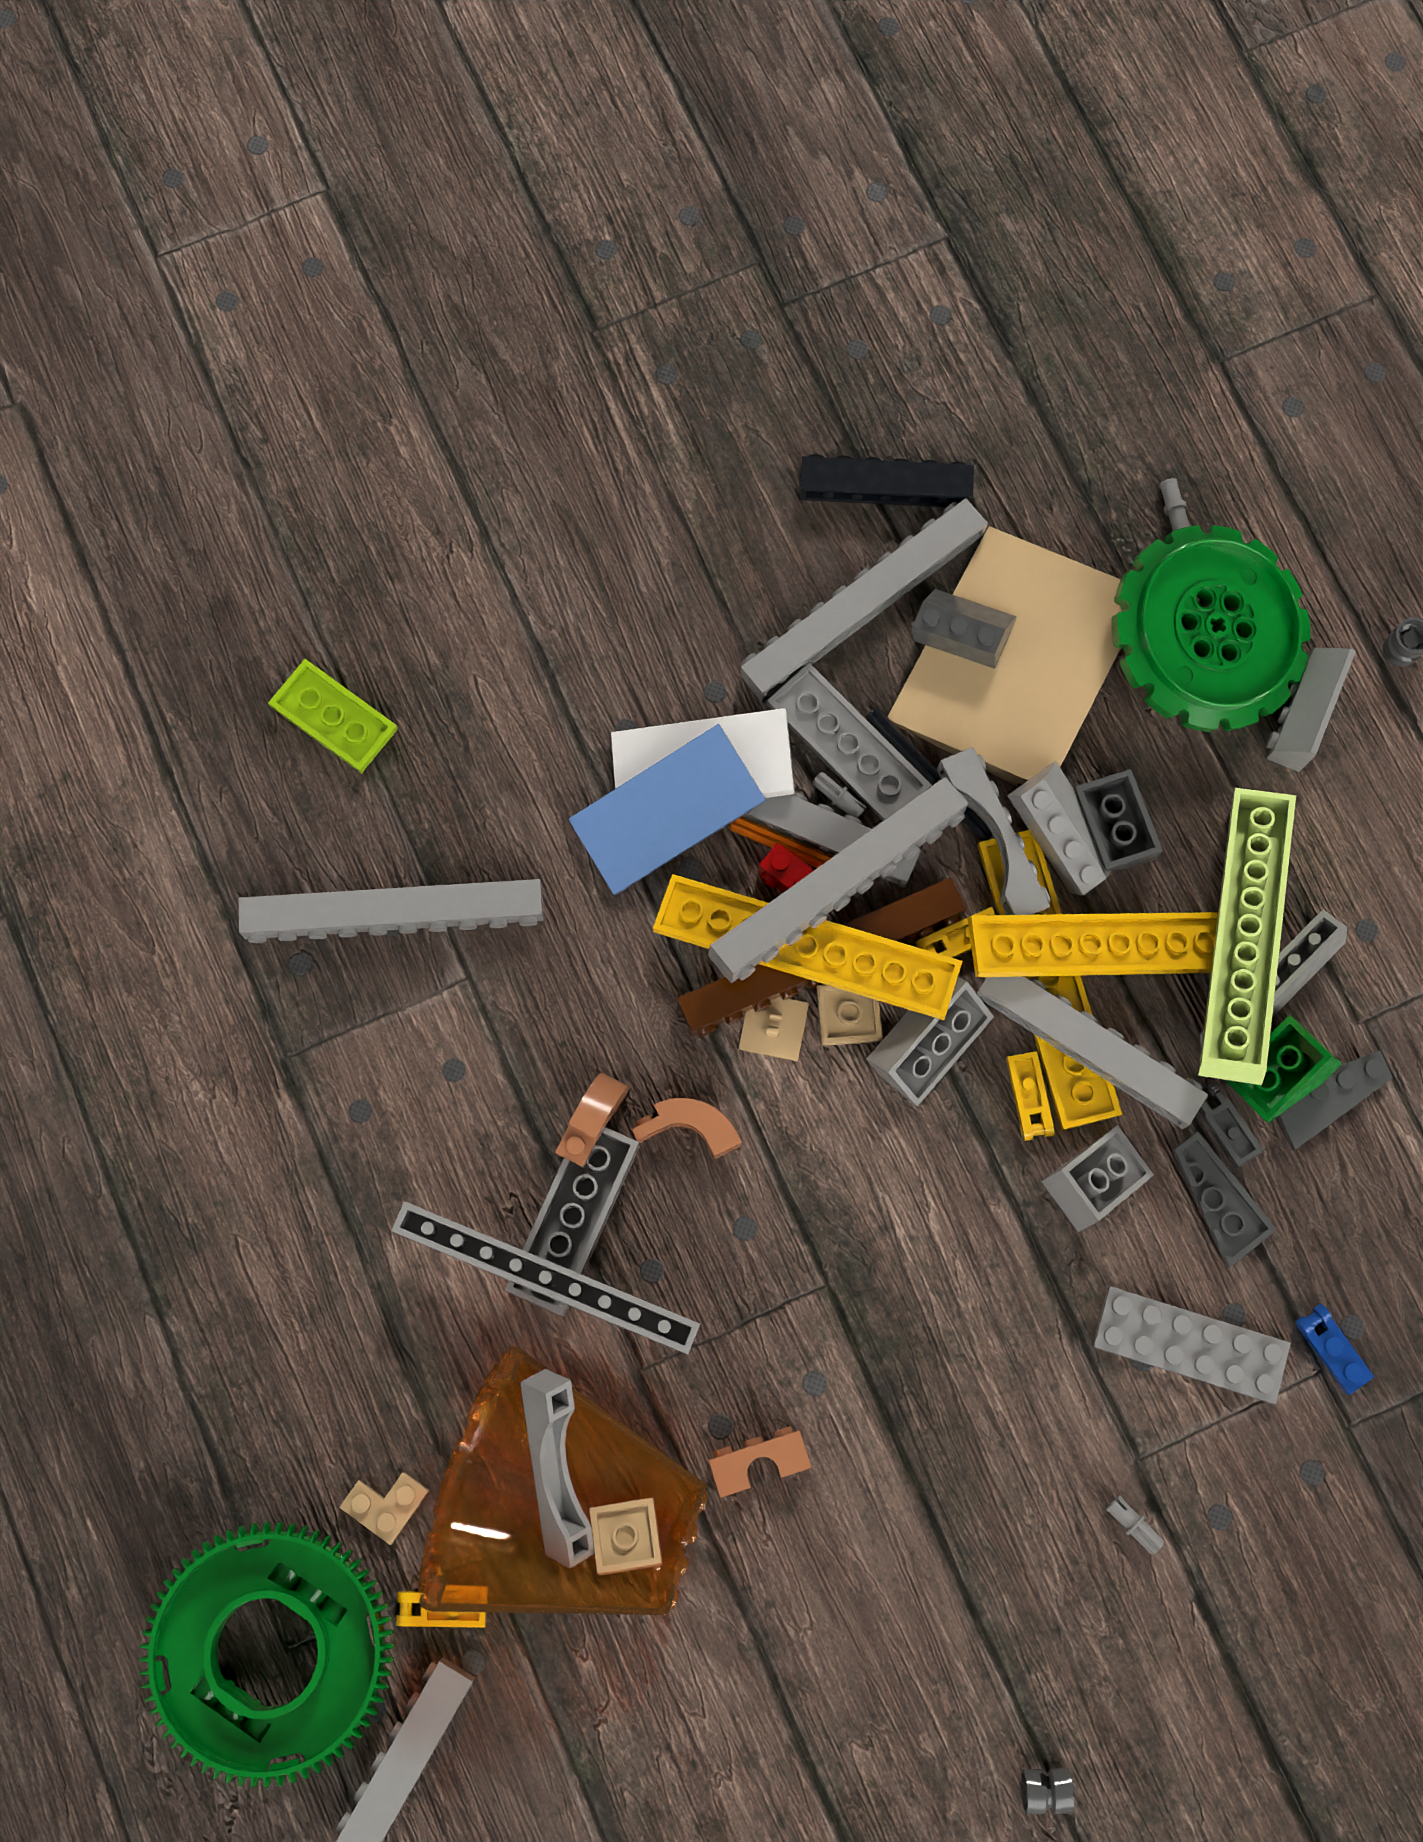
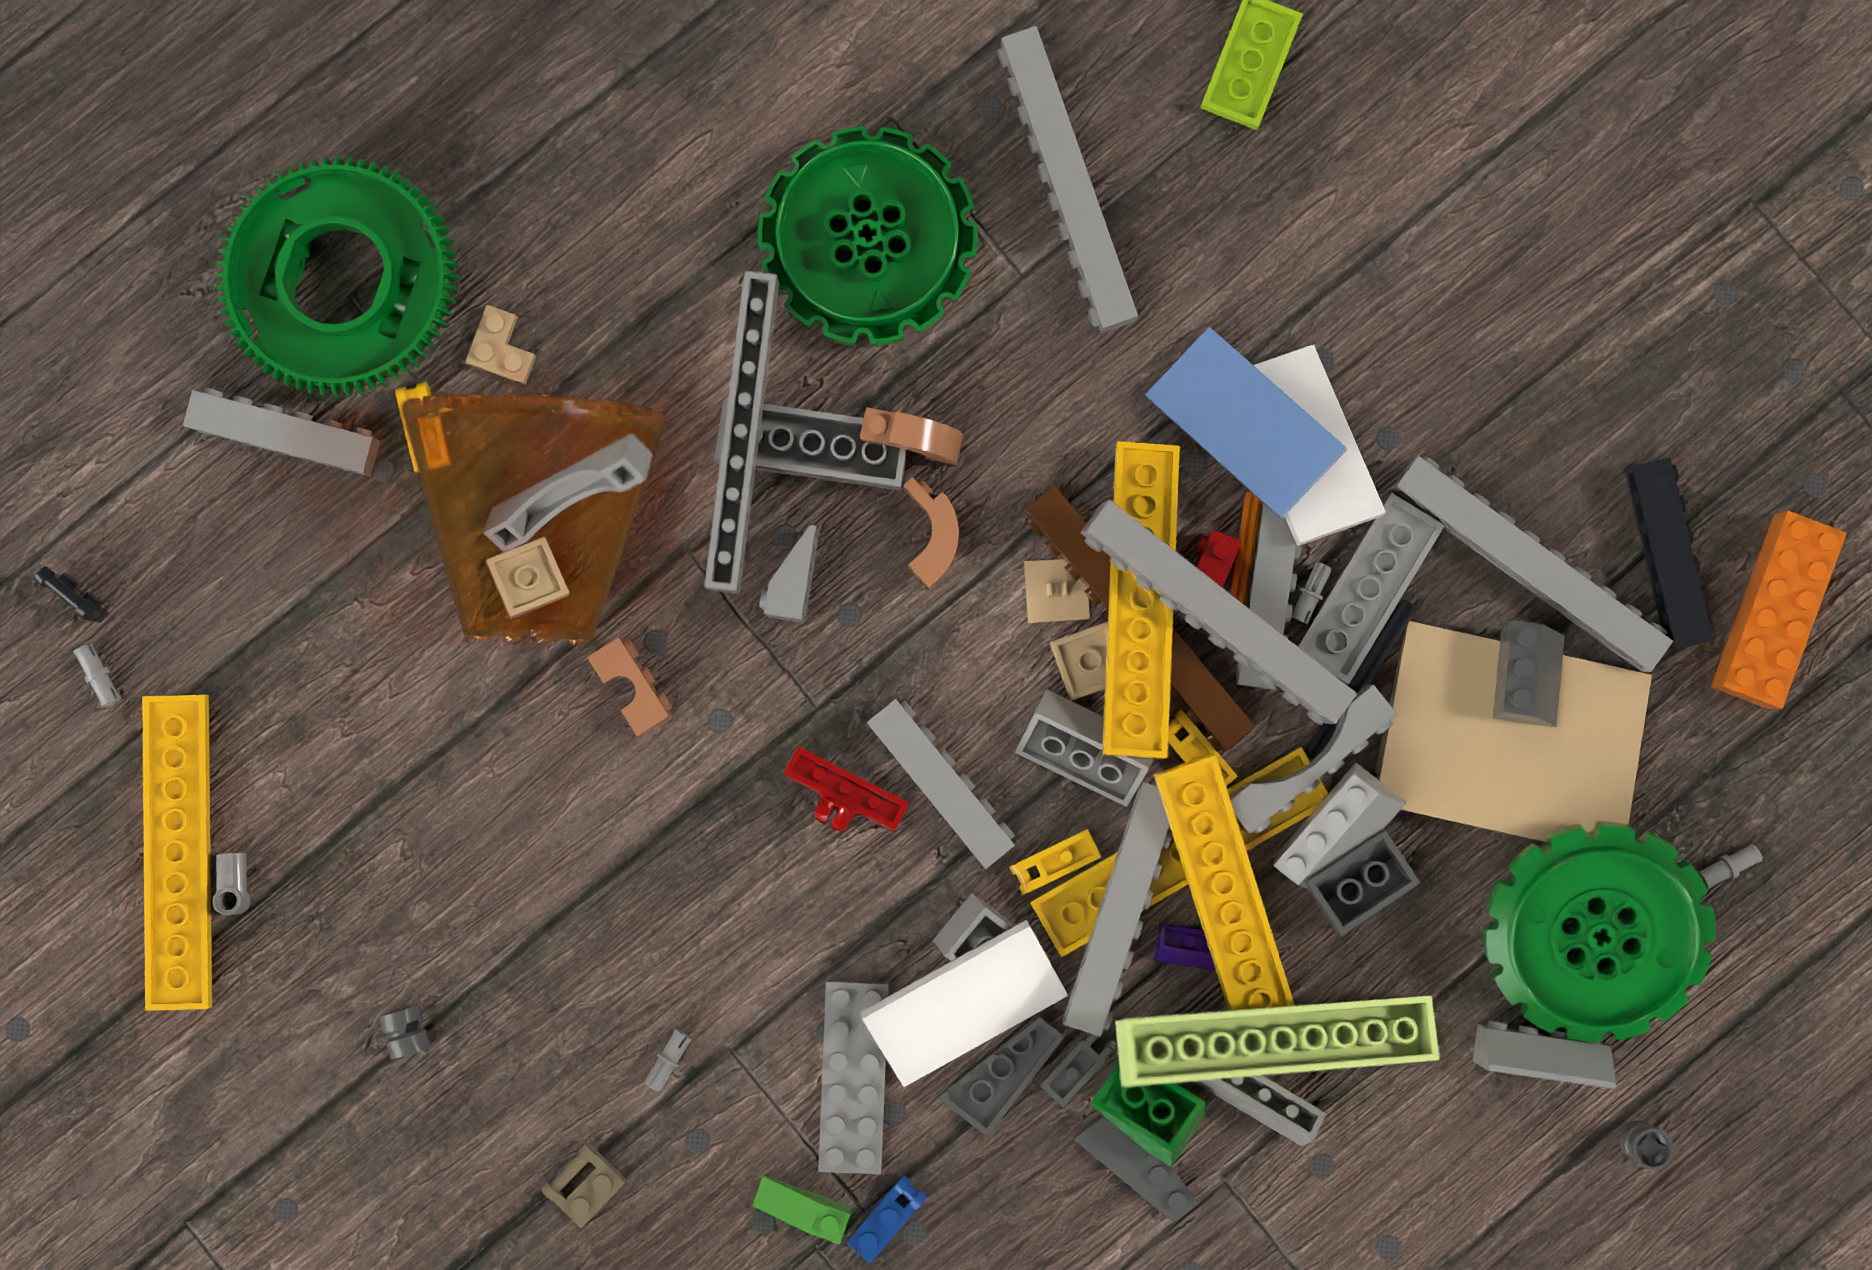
camera: 80 degrees right, 10 degrees up
(339, 1072) = (889, 177): none -> green piece
(705, 1274) = (791, 584): none -> light grey slope
(916, 1279) = (844, 793): none -> red plate
(929, 1183) = (941, 784): none -> light grey brick
(960, 406) = (1778, 610): none -> orange brick
(1137, 999) = (1182, 947): none -> dark purple slope
(1146, 1217) = (964, 1003): none -> white tile
(1248, 1639) = (593, 1190): none -> dark tan plate
(1309, 1427) = (803, 1209): none -> bright green slope

